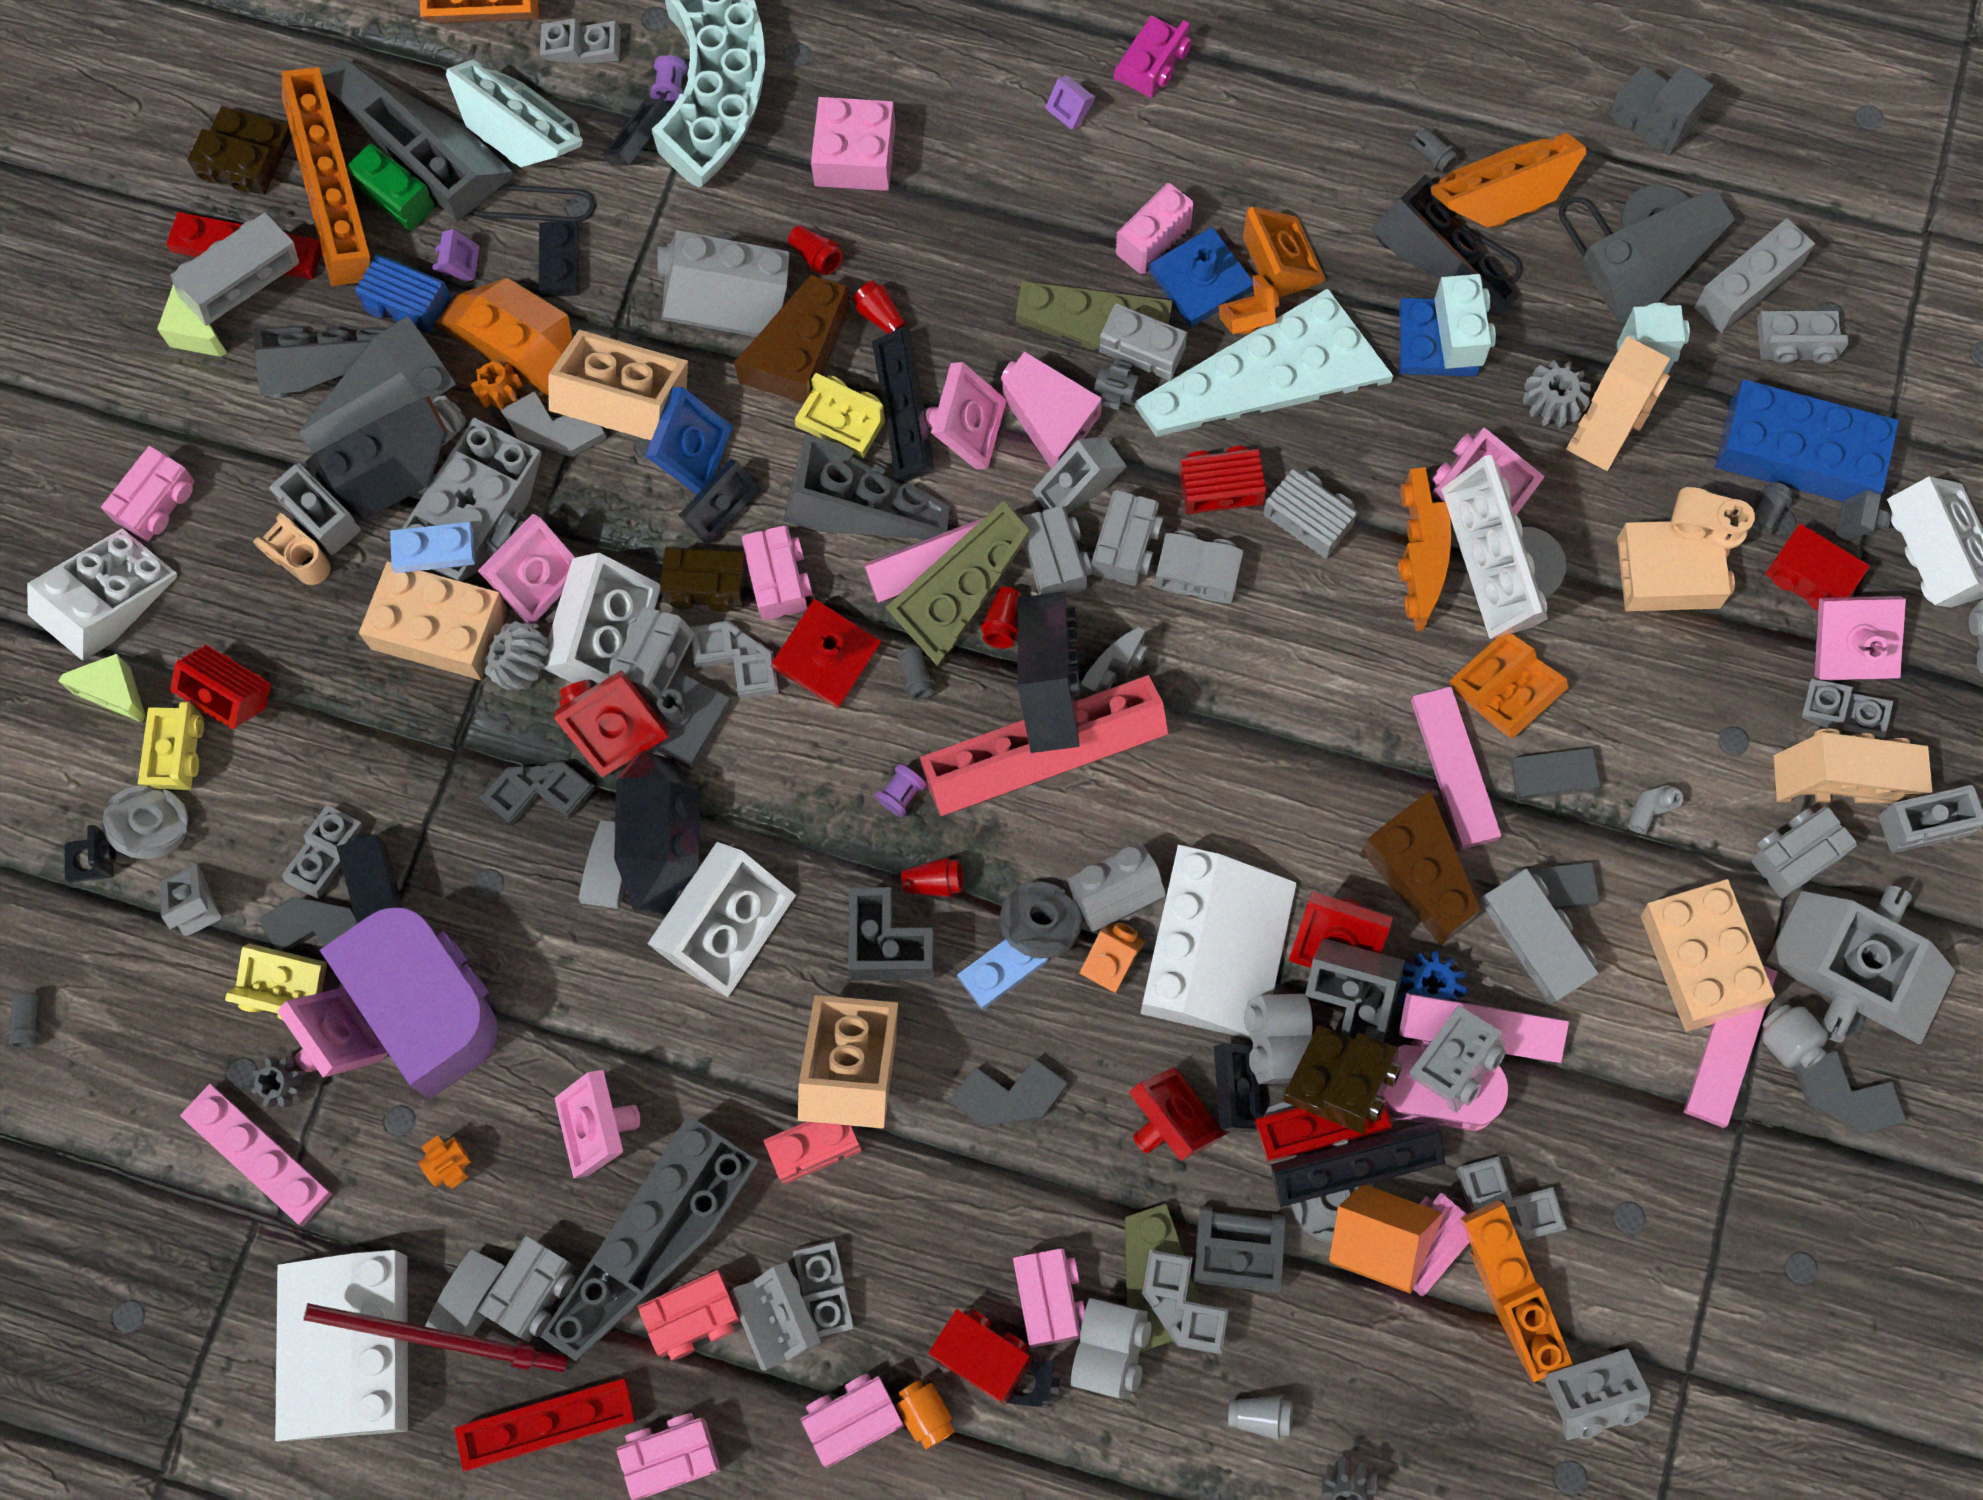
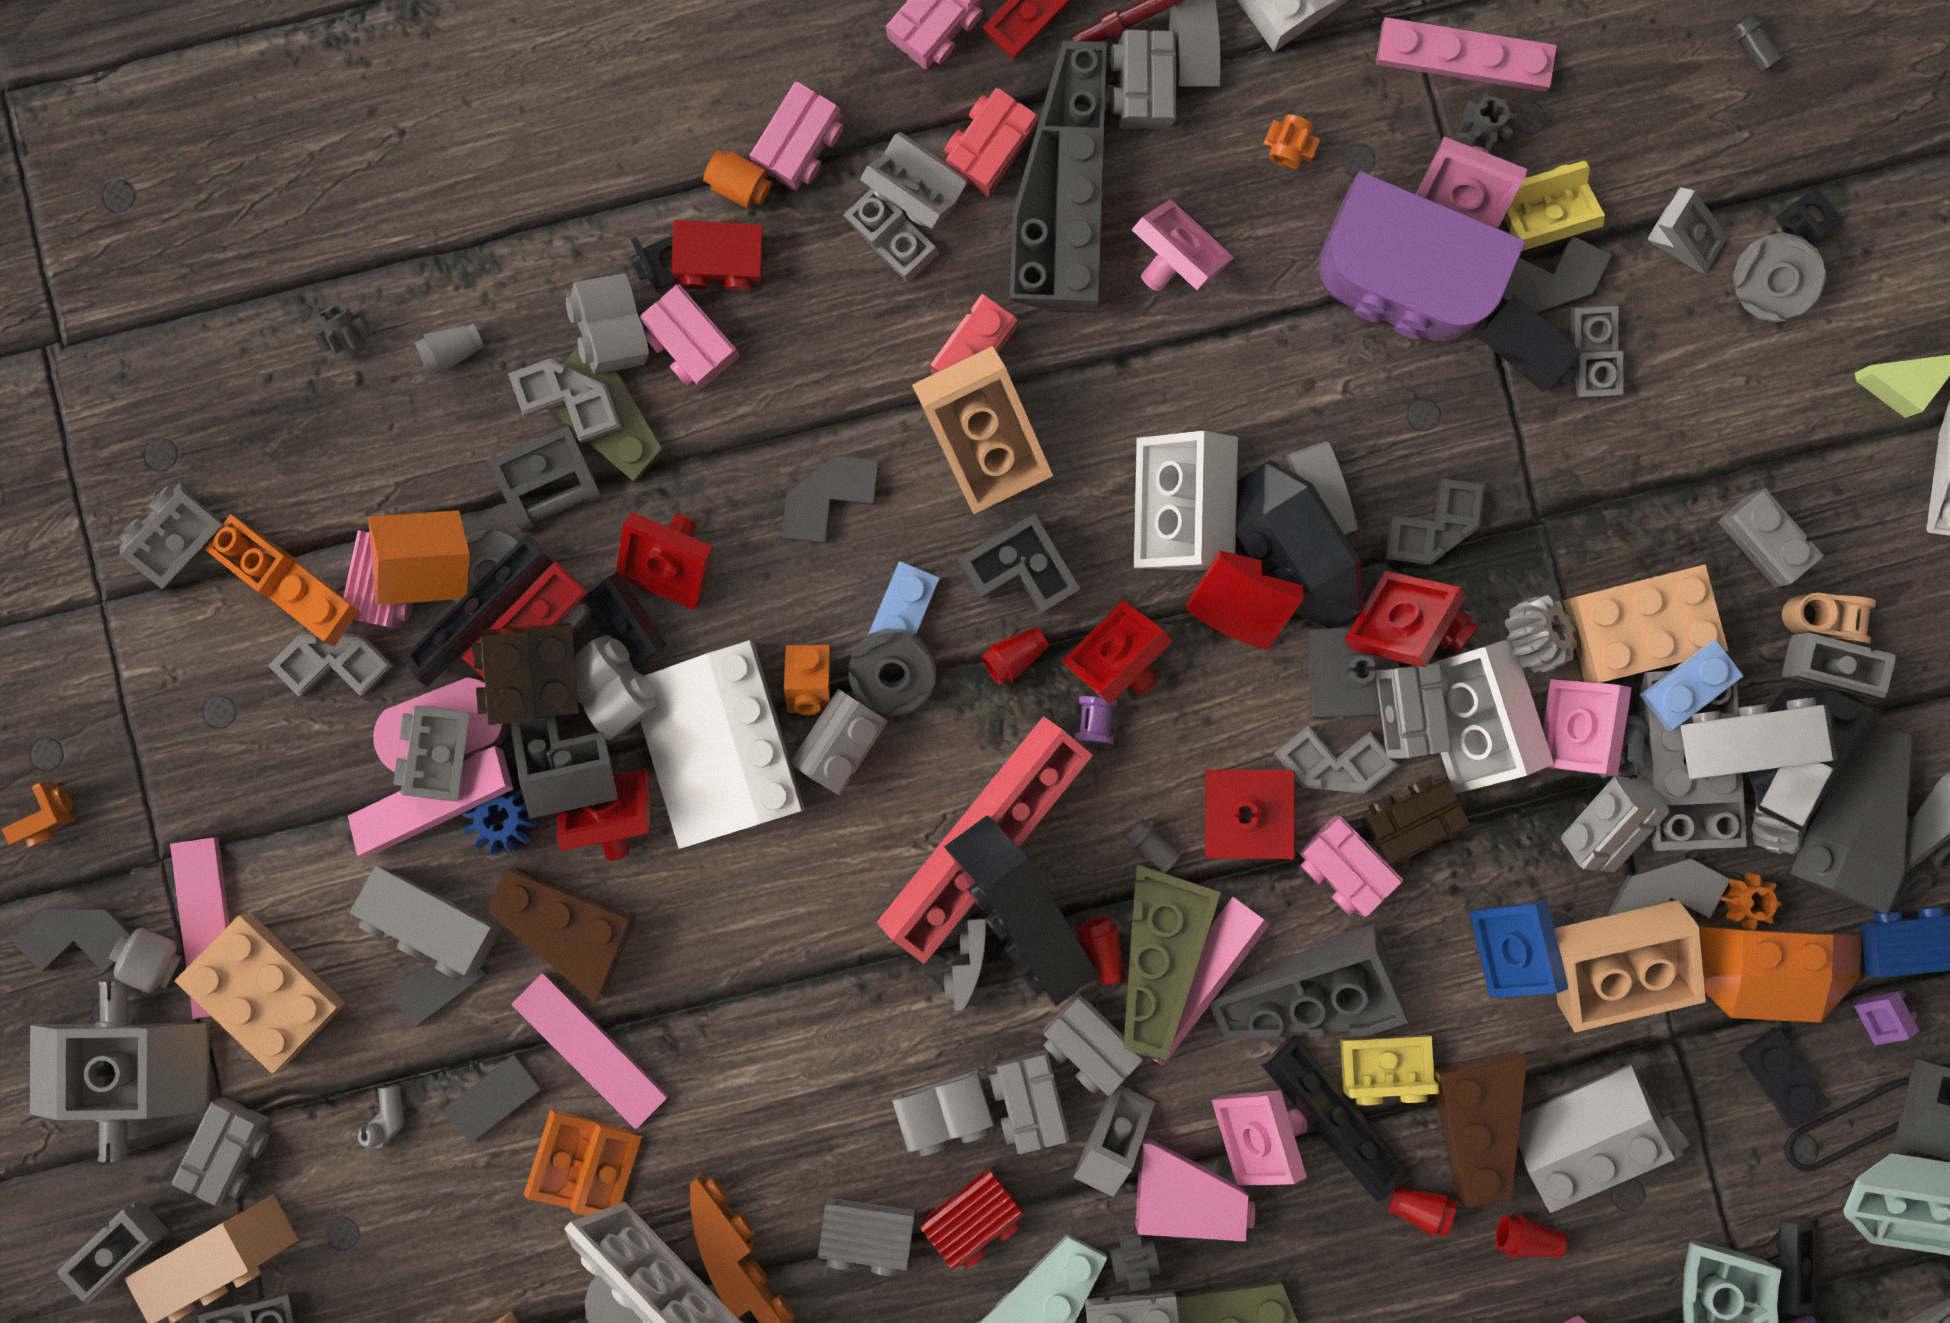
camera: 150 degrees right, 15 degrees up
(170, 747) = (1807, 360): light yellow bracket -> none
(220, 686) = (1802, 441): red brick -> none
(296, 630) = (1770, 538): none -> light grey brick
(413, 471) = (1758, 739): none -> light grey brick
(557, 486) = (1615, 824): none -> light grey brick
(719, 501) = (1450, 908): black plate -> none
(727, 809) = (1243, 601): none -> red slope
(851, 828) = (1118, 653): none -> red tile
(1837, 1202) = (38, 828): none -> orange bracket

